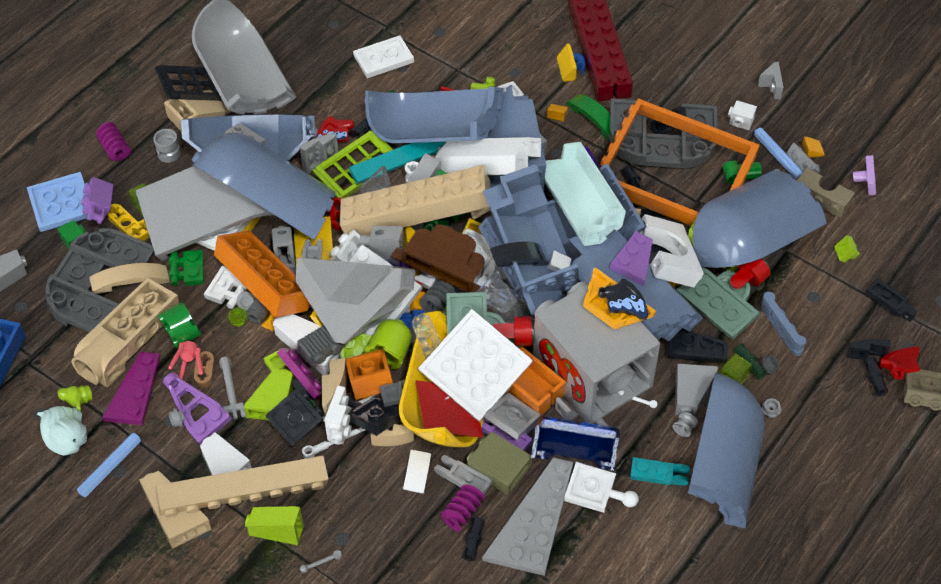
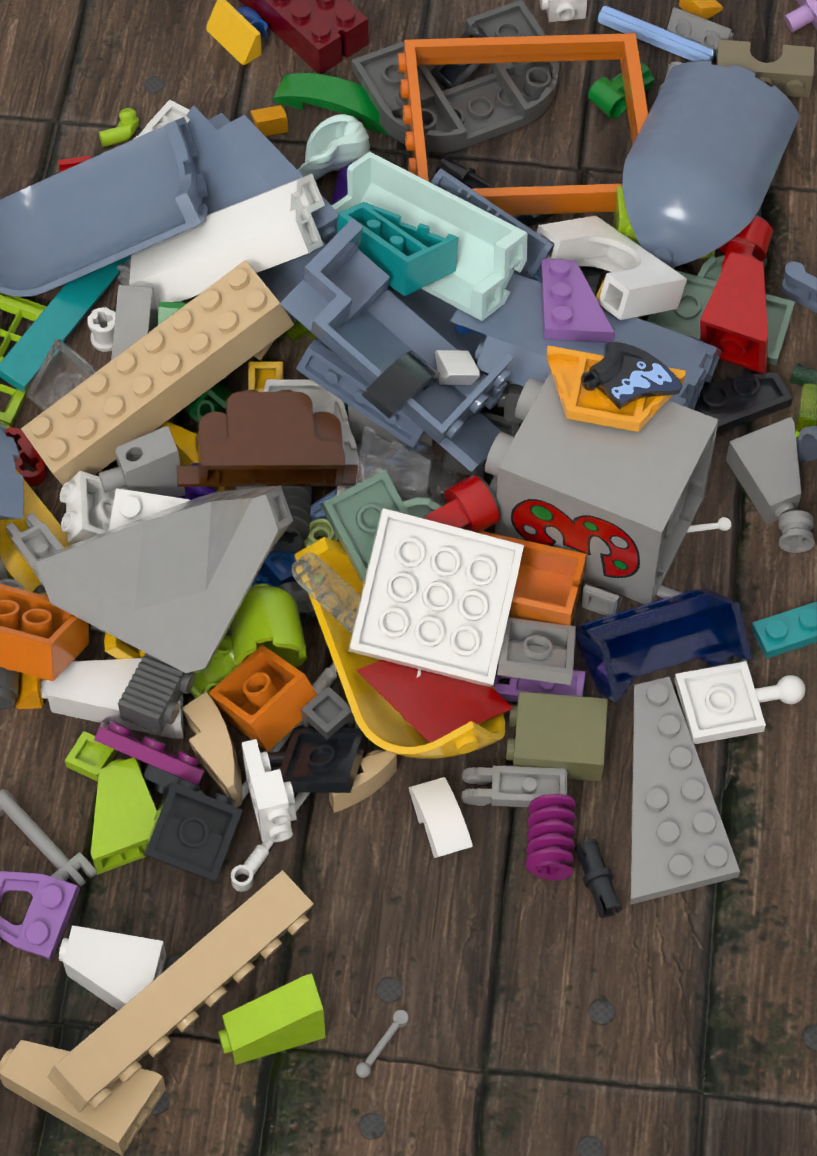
camera: 30 degrees left, 5 degrees up
(562, 193) = (402, 251): none -> teal wedge
(579, 132) = (334, 145): none -> light aqua piece
(720, 302) = (738, 315): none -> red slope

